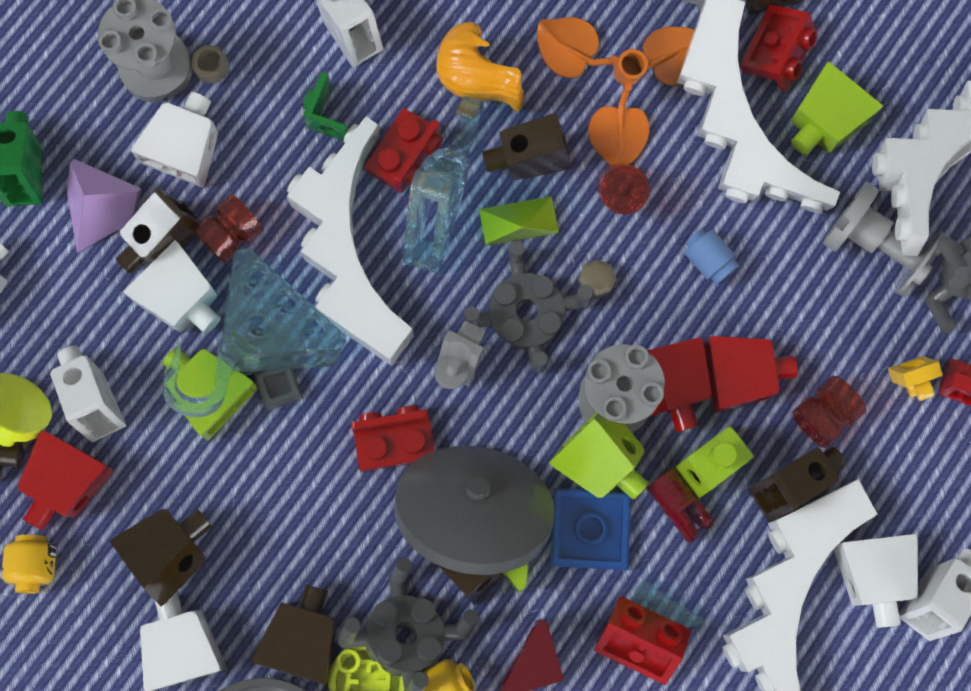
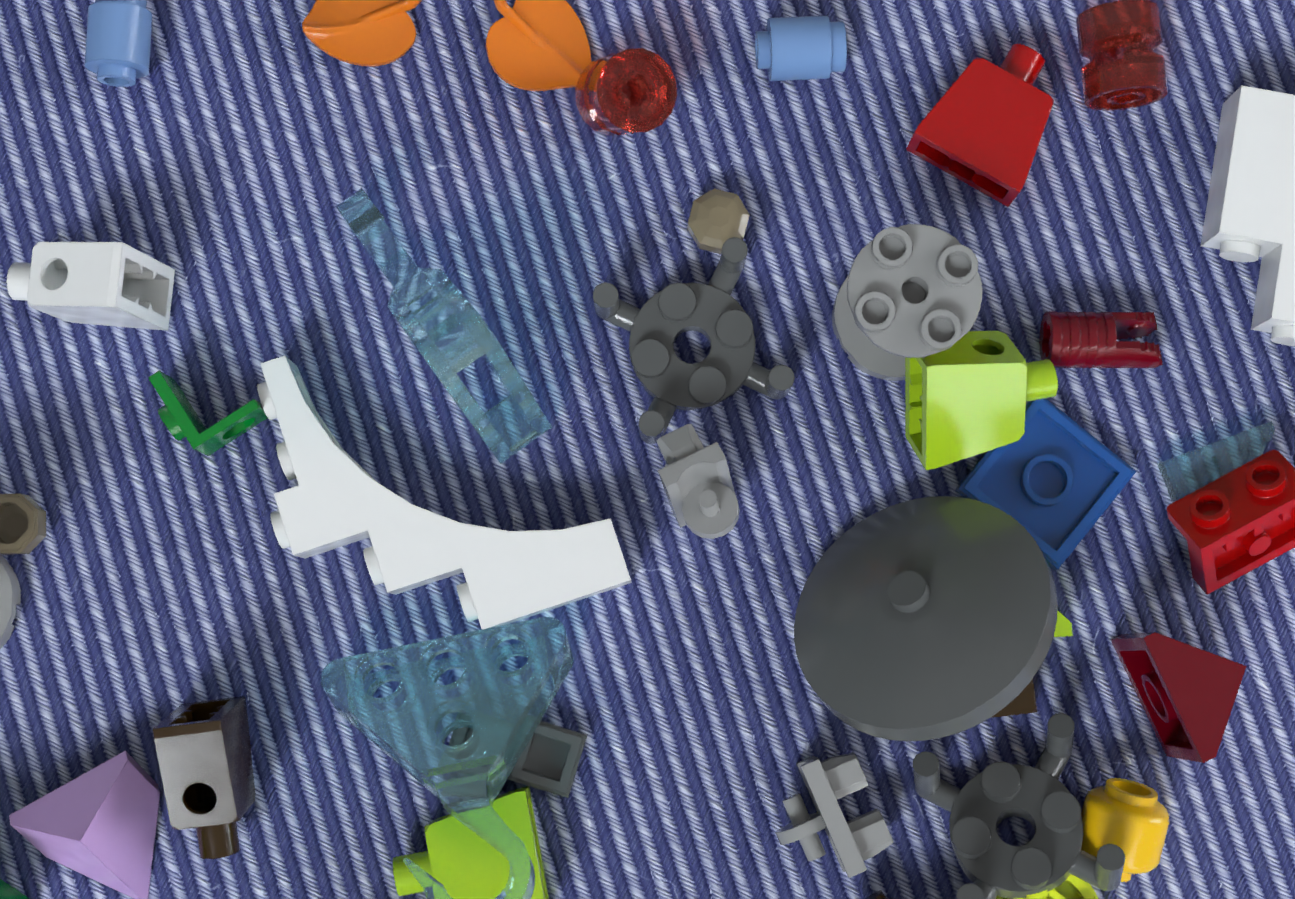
camera: 50 degrees left, 5 degrees up
(175, 291) = (310, 805): white torso -> none
(179, 140) = (94, 646): white torso -> none
(228, 228) = (275, 669): clear red wheel -> none
(359, 526) = (850, 840): none -> light grey hips
(392, 438) = (738, 655): red bracket -> none
(403, 150) = (342, 346): red bracket -> none
(472, 75) = (302, 178): light orange piece -> none
(518, 221) = (558, 265): lime slope -> none
(530, 149) = (481, 148): dark brown torso -> none
(685, 380) = (943, 197): red torso -> none
(714, 462) = (1082, 250): lime torso -> none
(797, 482) = (1187, 168): dark brown torso -> none

